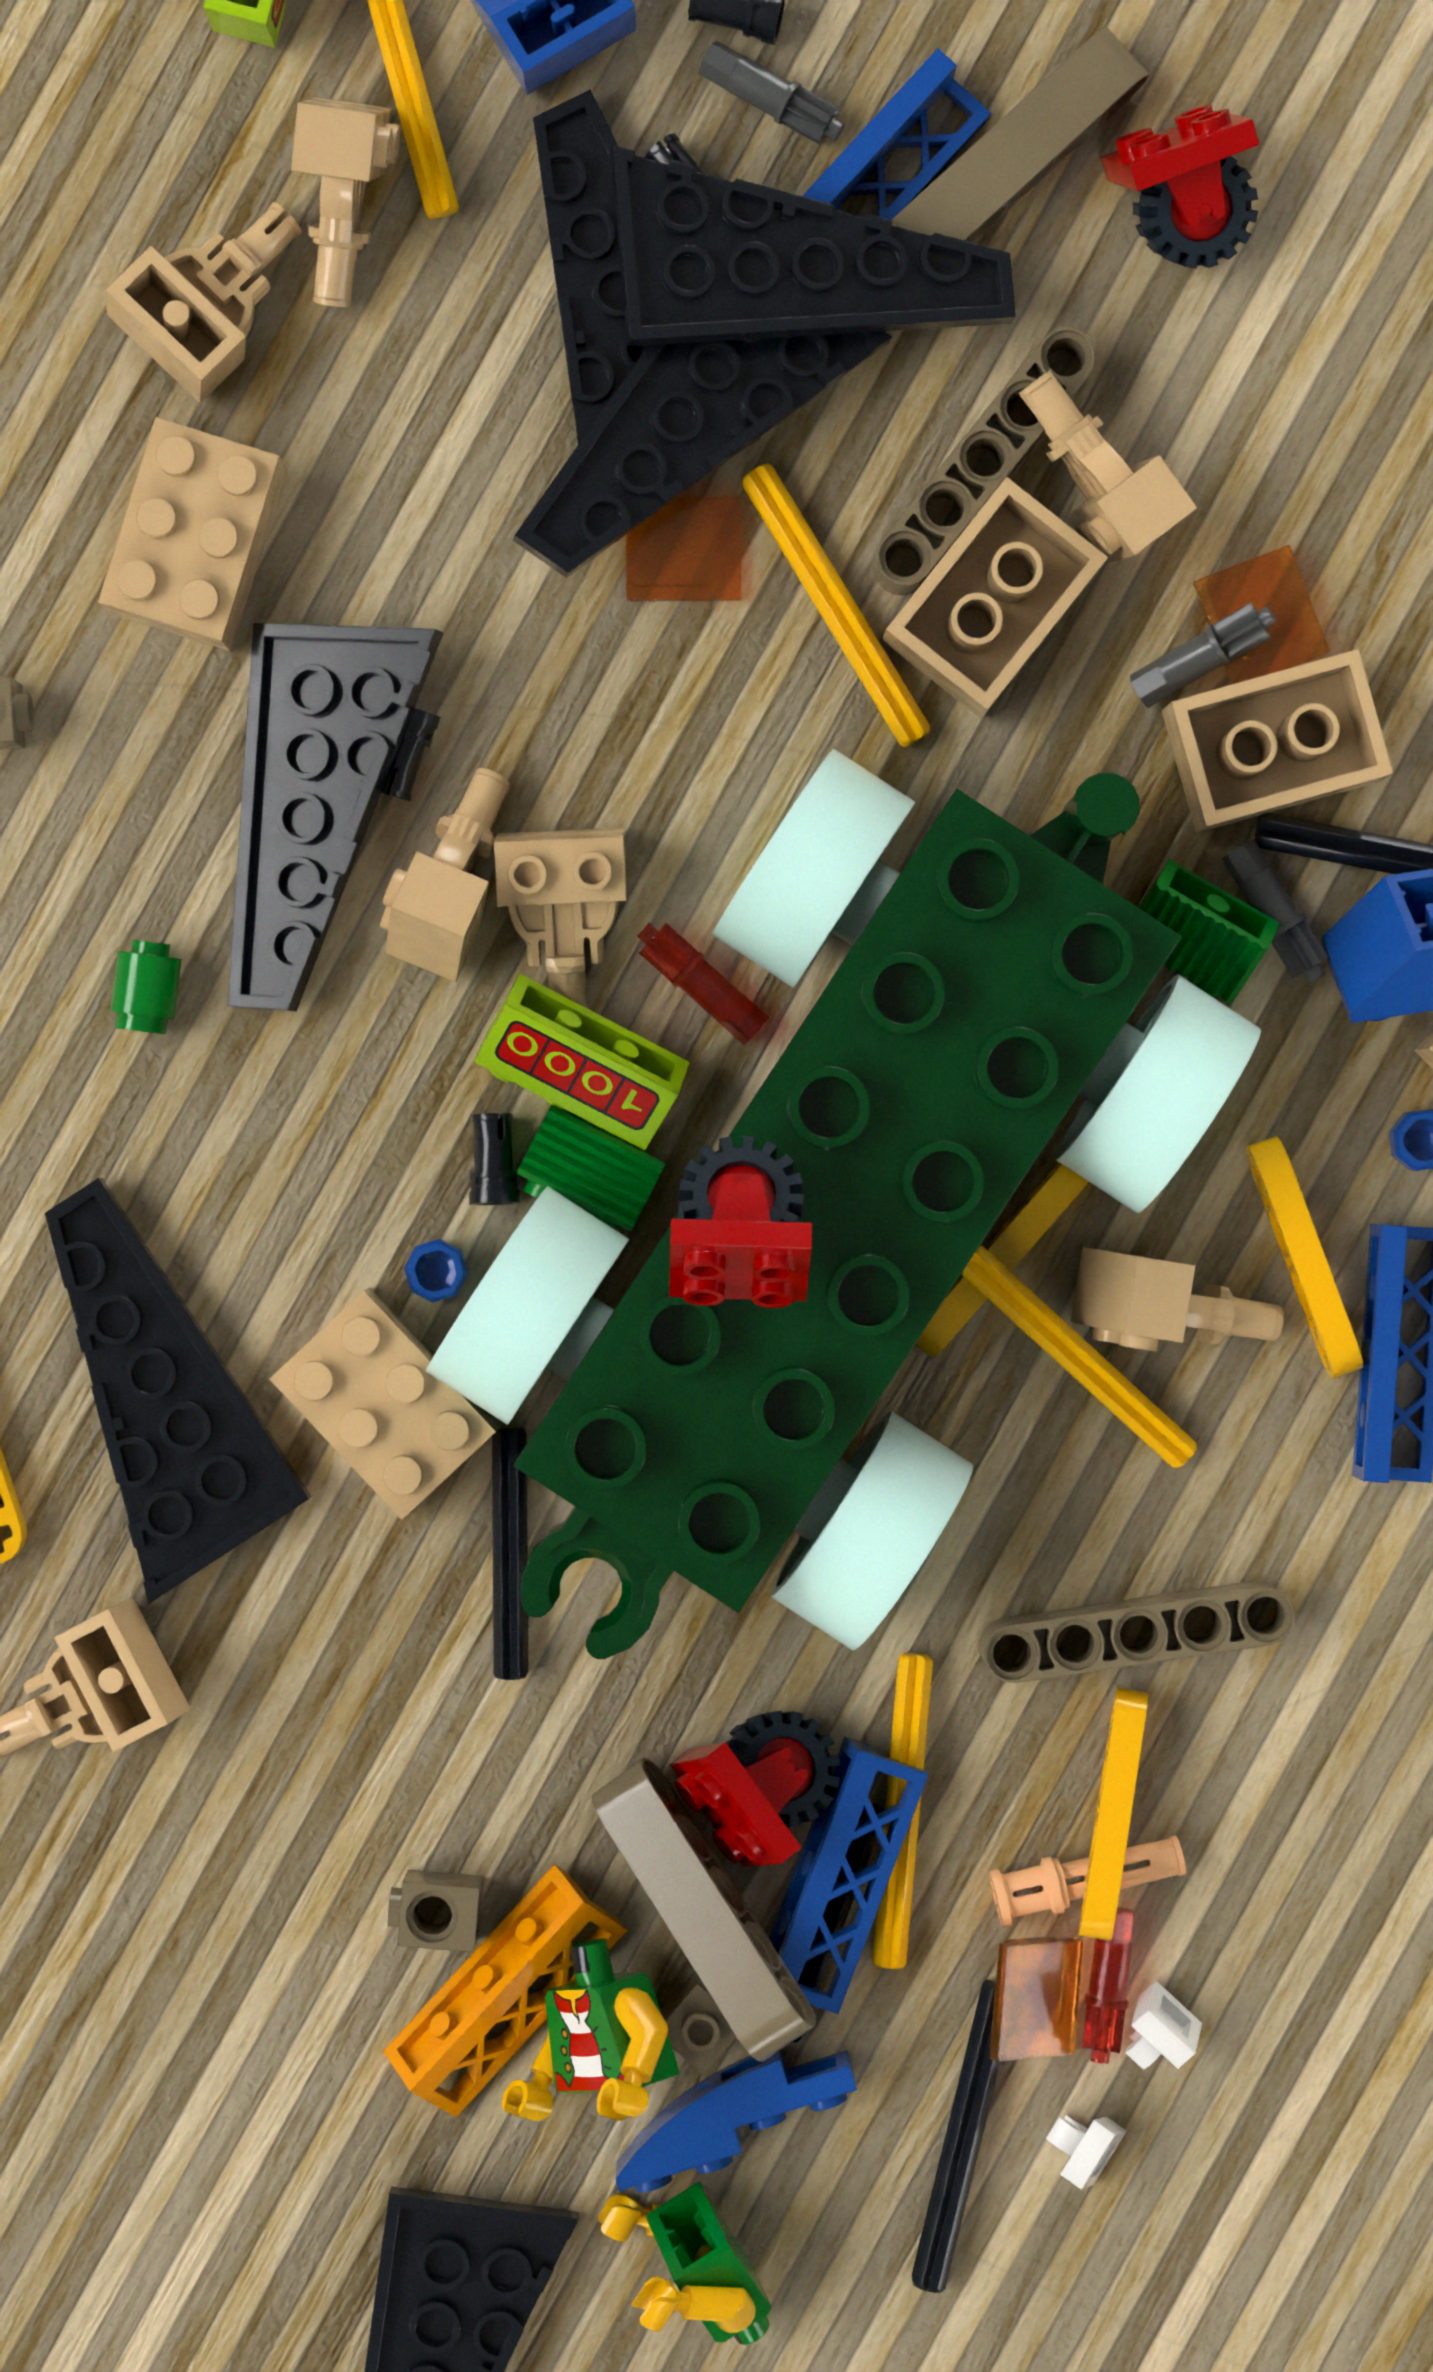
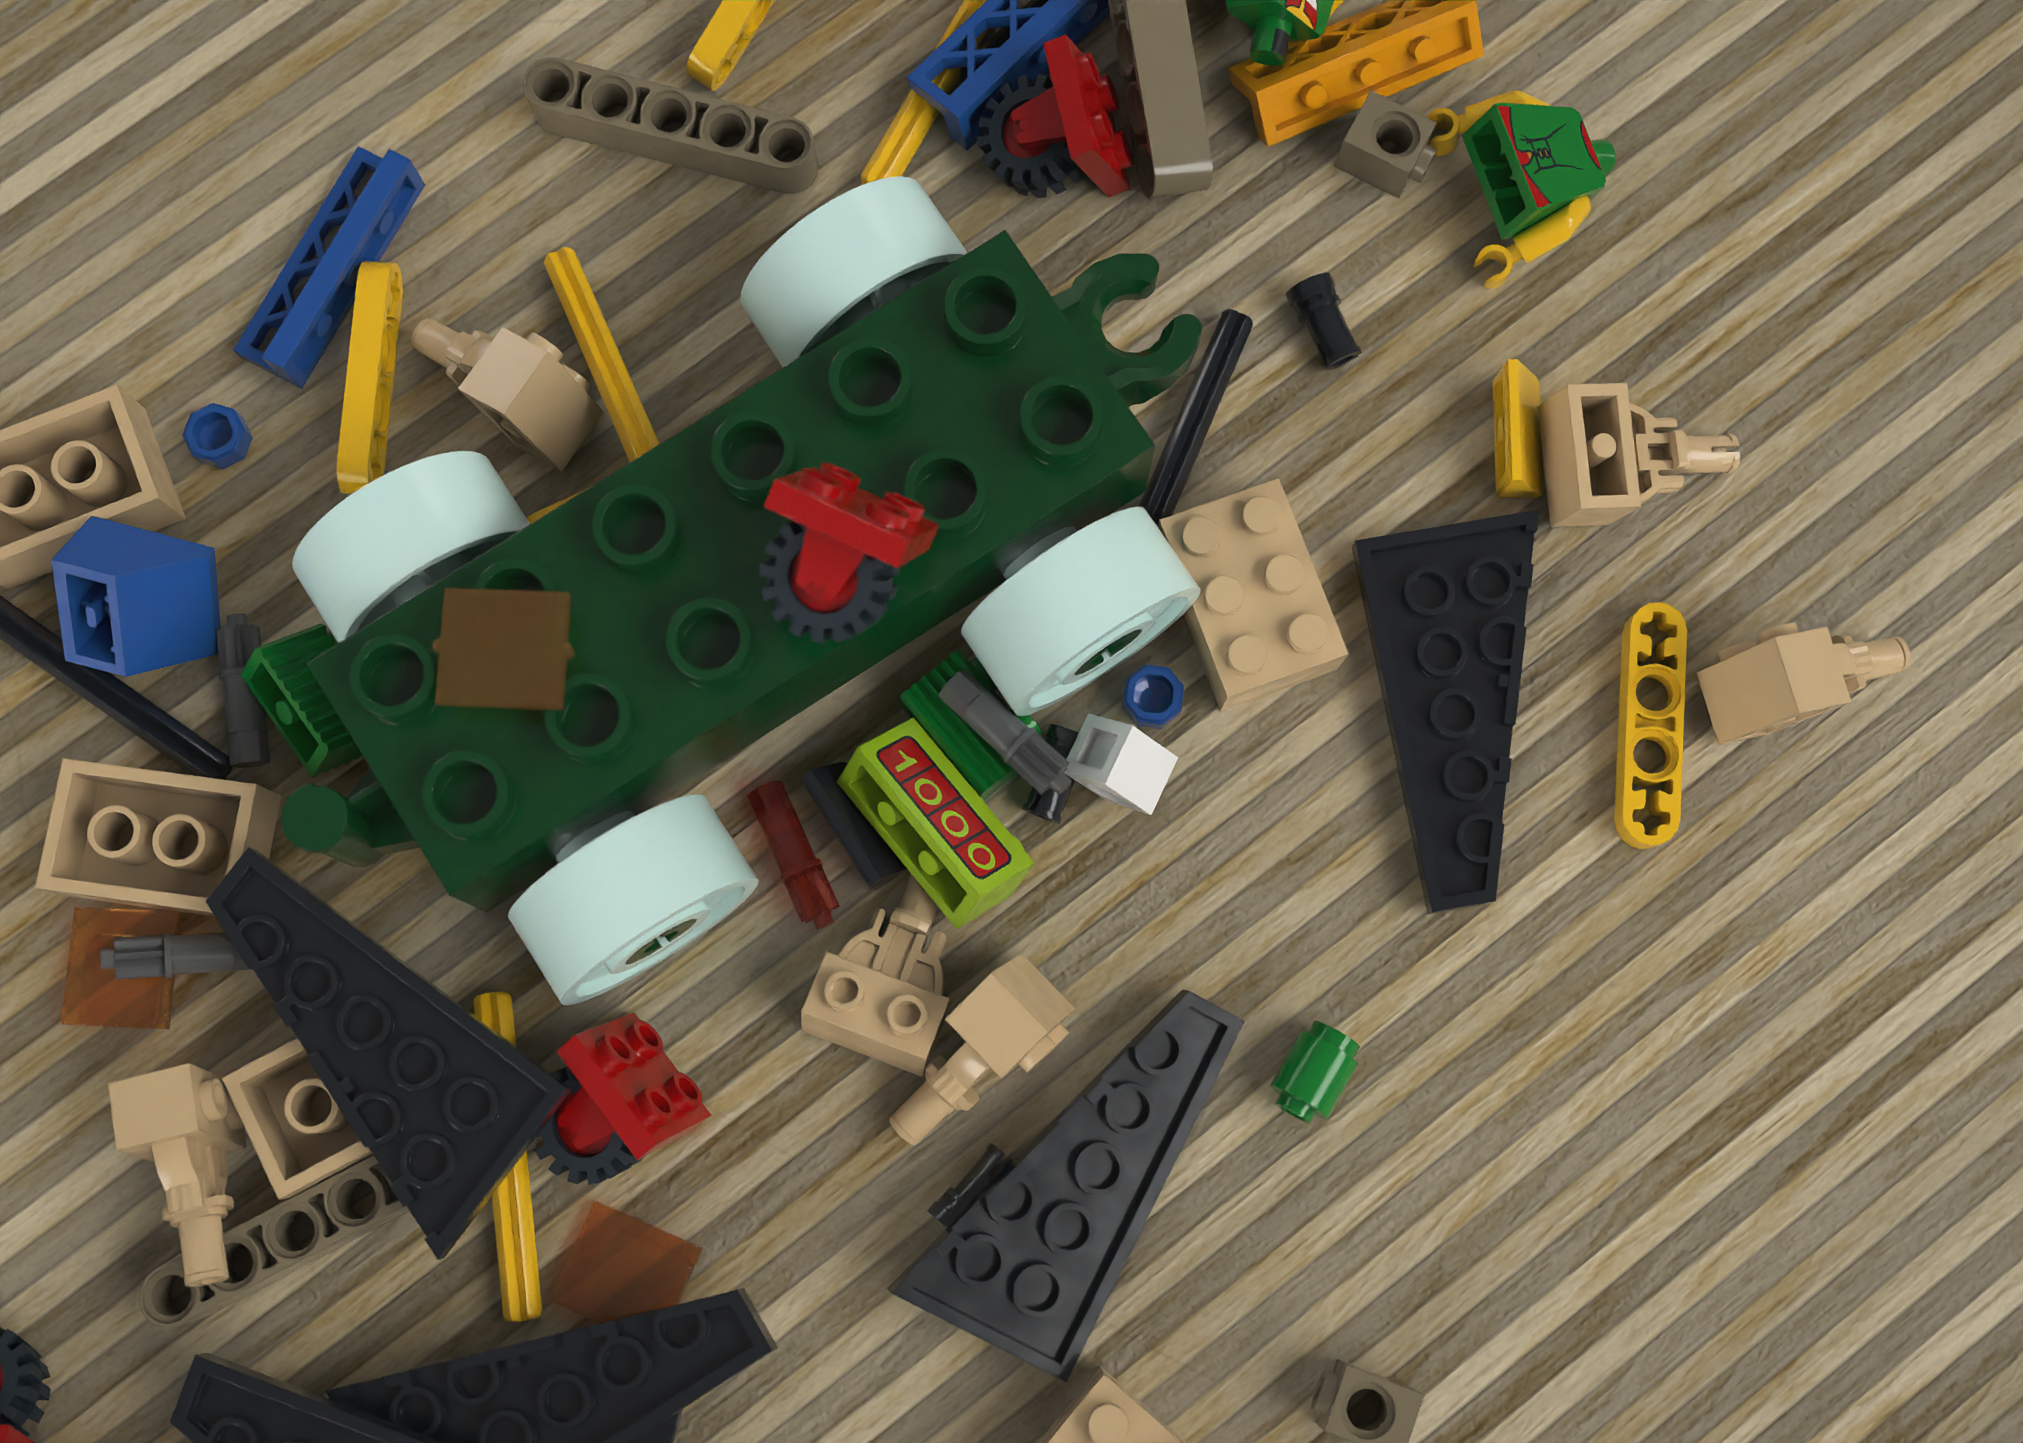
camera: 155 degrees left, 10 degrees down
(199, 1675) = (1517, 432): none -> yellow slope
(287, 1942) = (1531, 168): none -> green torso
(436, 1717) = (1320, 311): none -> black pin
(437, 1189) = (1120, 763): none -> white brick
(549, 1167) = (1006, 733): none -> dark grey piece
(651, 1022) = (859, 838): none -> black slope
(757, 688) = (620, 1104): none -> red plate
(944, 638) = (406, 1063): none -> black wing
(1003, 1018) = (503, 649): none -> clear orange piece

